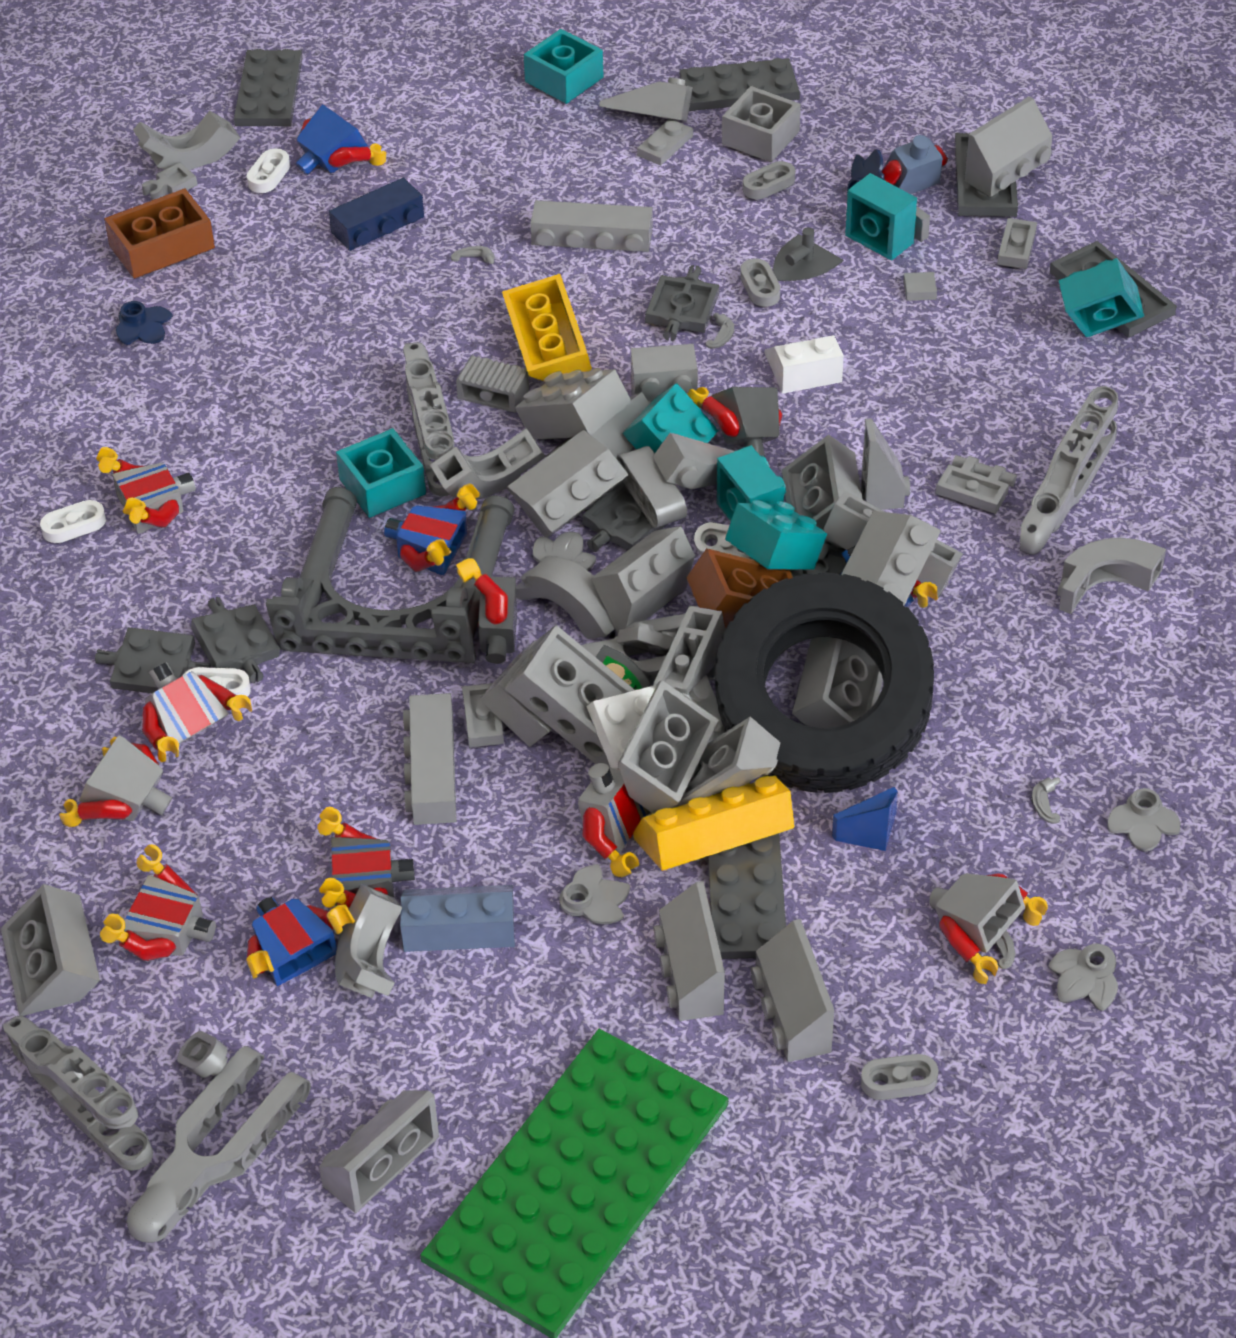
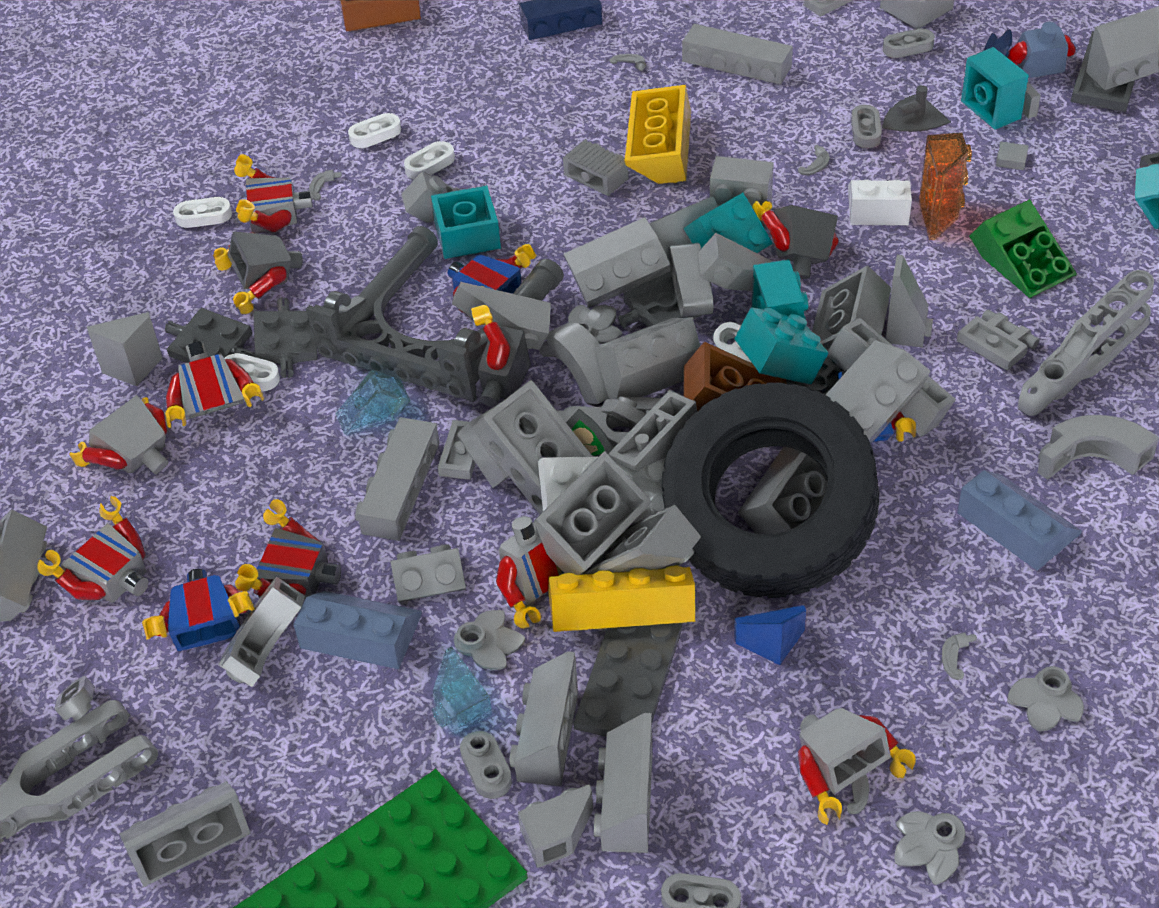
camera: 20 degrees right, 0 degrees up
(70, 689) = (126, 347): none -> light grey slope
(141, 323) = (334, 66): dark blue plate -> none
(170, 563) = (259, 263): none -> dark grey torso
(187, 457) = (319, 180): none -> light grey piece
(225, 389) = (374, 130): none -> white plate
(299, 414) = (429, 159): none -> white plate
(319, 450) = (418, 195): none -> light grey slope
(367, 689) = (372, 403): none -> clear light blue slope
(428, 411) = (527, 179): light grey piece -> none
(490, 471) = (553, 239): light grey arch -> none
(492, 557) = (508, 311): none -> light grey slope
(506, 846) = (427, 573): none -> light grey bracket
(572, 403) = (650, 194): light grey brick -> none
(592, 954) = (458, 696): none -> clear light blue slope
(640, 1011) = (484, 762): none -> light grey plate
(682, 303) = (789, 131): dark grey plate -> none
(736, 1050) = (556, 824): none -> light grey slope
(869, 330) = (943, 181): none -> clear orange slope
(969, 386) = (1023, 249): none -> green slope
(1017, 243) = (1116, 134): light grey plate -> none
(1056, 659) = (1015, 518): none -> sand blue slope

